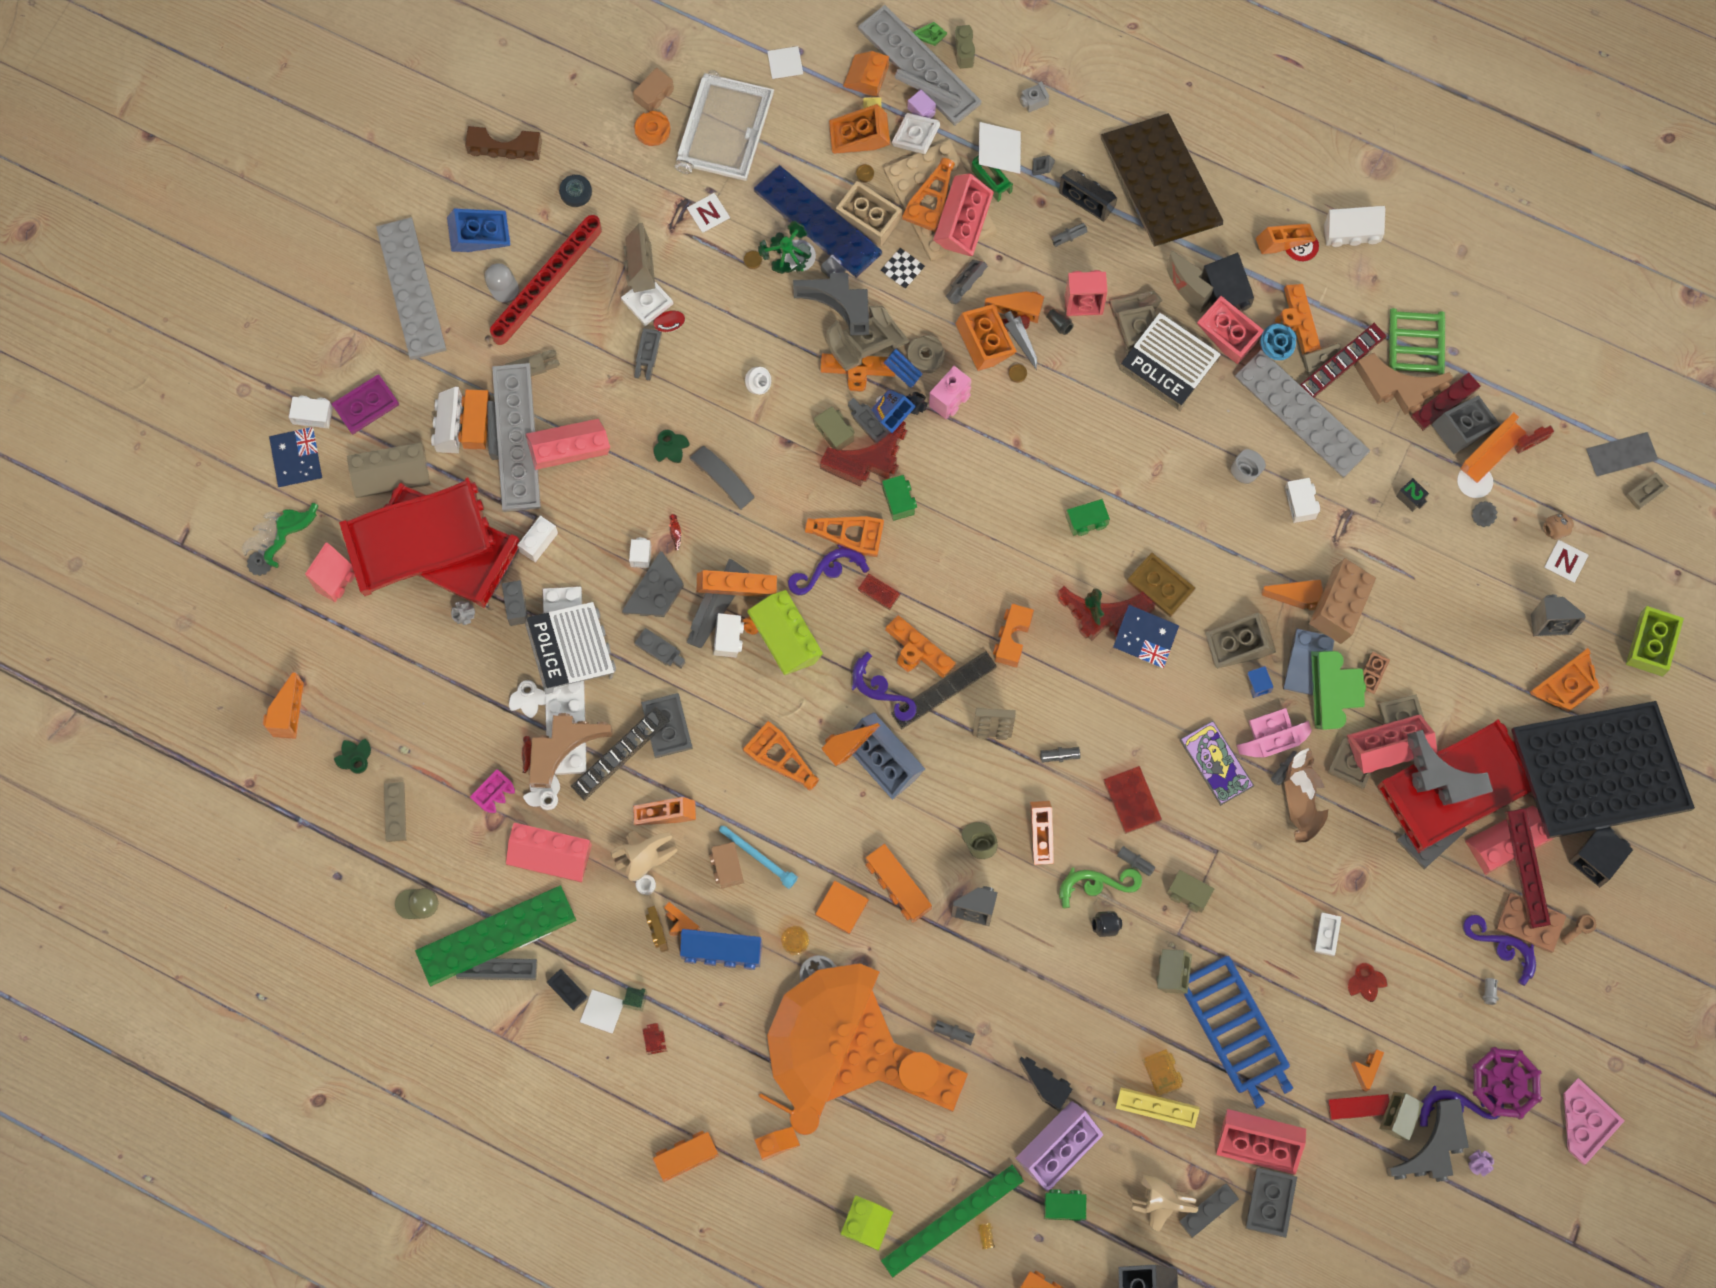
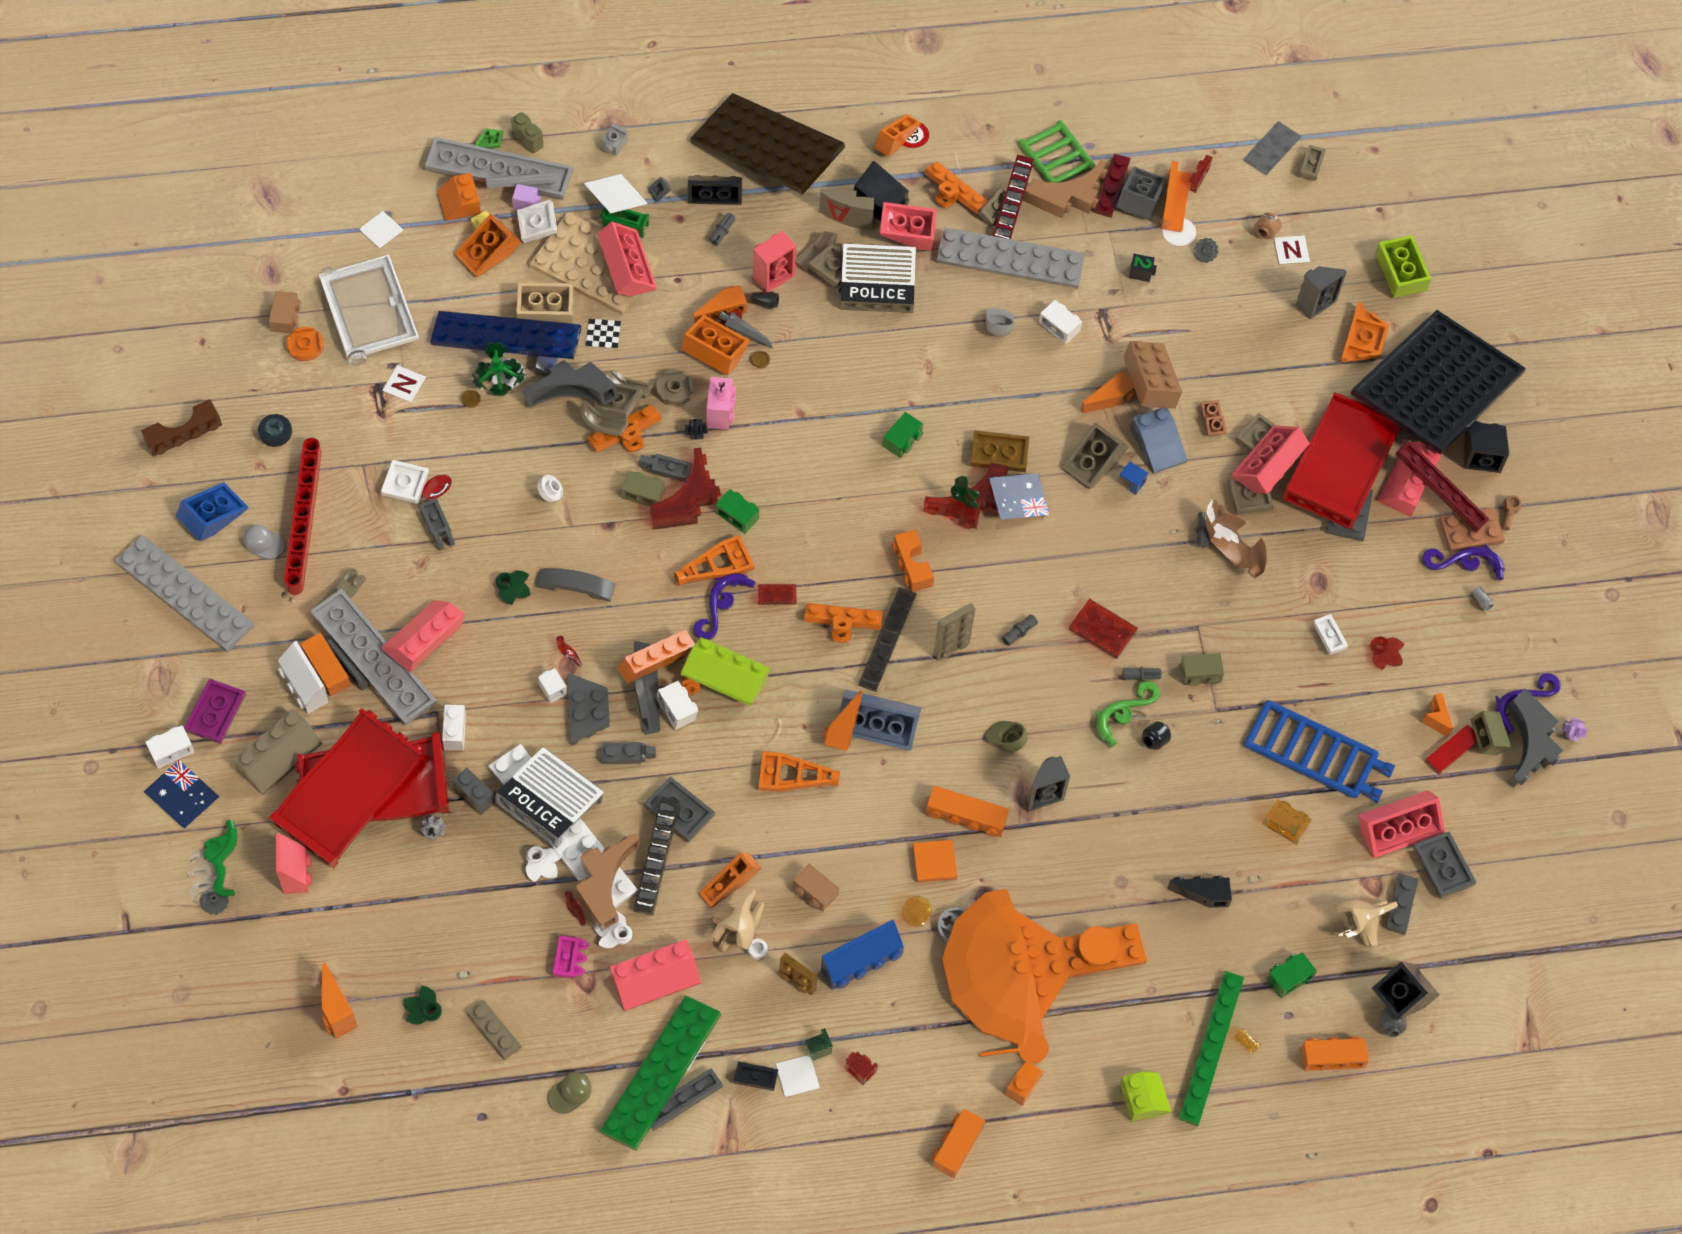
camera: 40 degrees left, 10 degrees down
(639, 260) = (376, 450): dark tan slope -> none
(684, 922) = (809, 954): orange slope -> none
(787, 878) = (872, 866): medium azure piece -> none
(865, 173) = (515, 276): pearl gold piece -> none
(880, 693) = (838, 674): dark purple plant -> none
(892, 409) = (682, 442): blue torso -> none
(904, 366) = (665, 408): blue tile -> none
(922, 215) = (591, 280): orange plate -> none
(954, 1032) = (1100, 899): dark grey pin -> none
(965, 280) = (664, 311): dark grey hinge -> none
(1042, 832) = (1051, 697): slope -> none
(1059, 1146) = (1251, 930): lavender slope -> none
(1157, 1107) = (1303, 850): light yellow plate -> none
(1174, 971) = (1237, 737): olive brick -> none
(1216, 763) = (1146, 560): tile -> none
(1274, 734) = (1174, 511): bright pink plate -> none
(1278, 341) = (952, 213): dark azure cone -> none
(1334, 689) = (1196, 445): bright green brick -> none
(1355, 226) = (945, 93): white slope -> none
(1435, 773) = (1323, 456): dark grey arch -> none
(1515, 1075) = (1551, 650): magenta plate -> none
(1588, 1121) = (1626, 647): bright pink plate -> none

